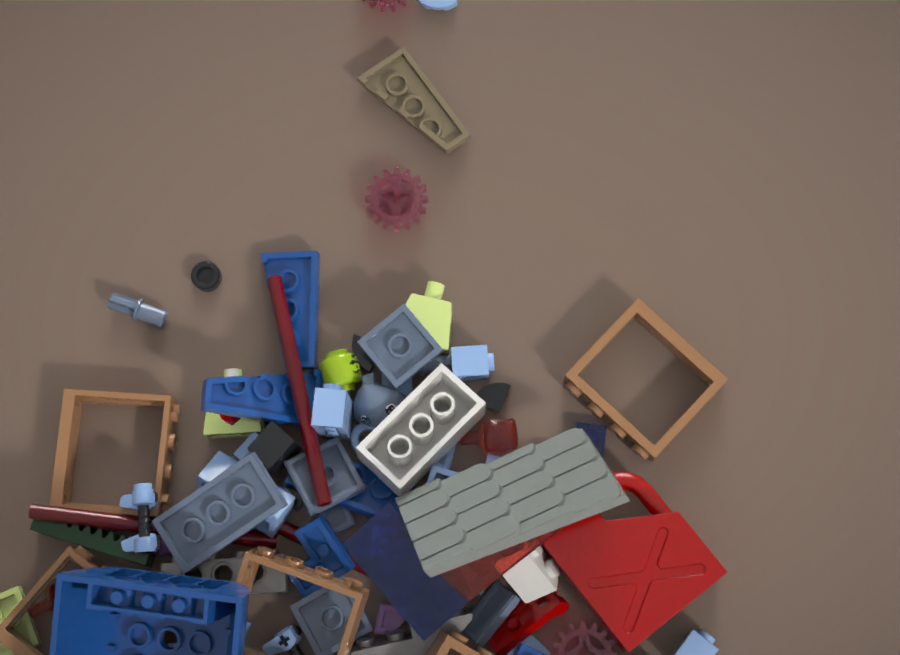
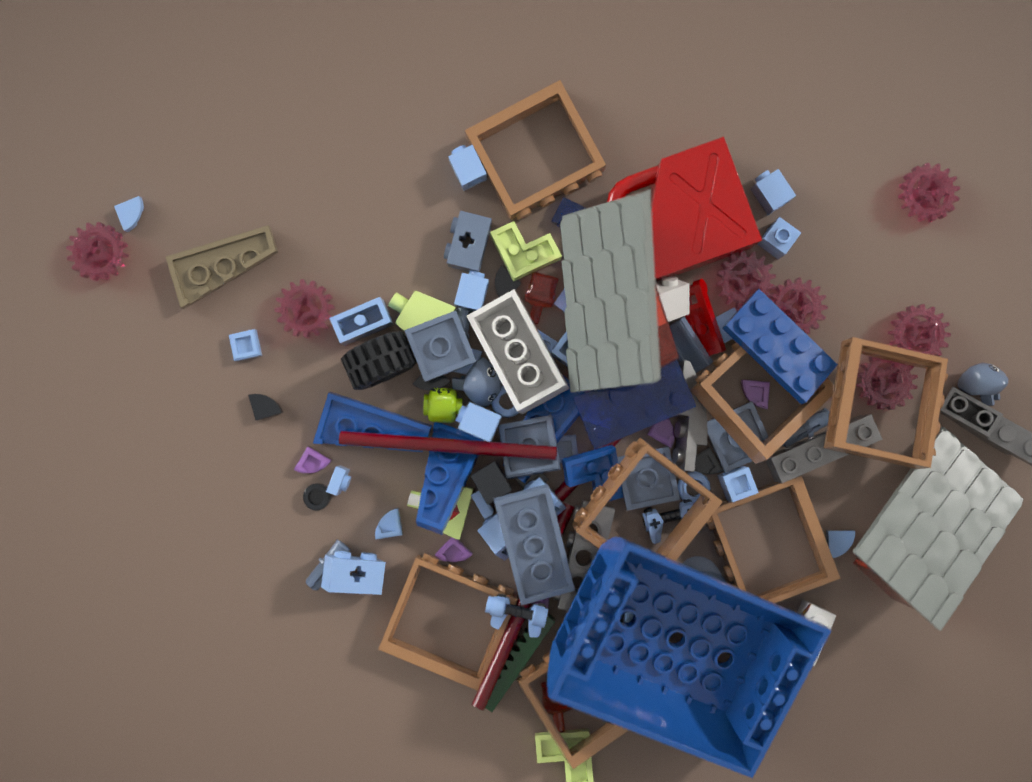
camera: 75 degrees left, 10 degrees up
(130, 352) = (367, 580): none -> light blue brick
(190, 435) = (453, 551): none -> medium lavender tile
(198, 360) = (389, 525): none -> light blue tile
(229, 292) = (339, 481): none -> light blue plate
(241, 259) = (312, 461): none -> medium lavender tile
(283, 192) = (264, 406): none -> black tile
(340, 153) = (245, 345): none -> light blue tile
(364, 288) = (378, 360): none -> black tyre
(401, 259) = (361, 321): none -> light blue brick
(508, 348) = (478, 229): none -> sand blue brick
(526, 406) = (520, 257): none -> yellowish green plate
(601, 314) = (467, 166): none -> light blue brick

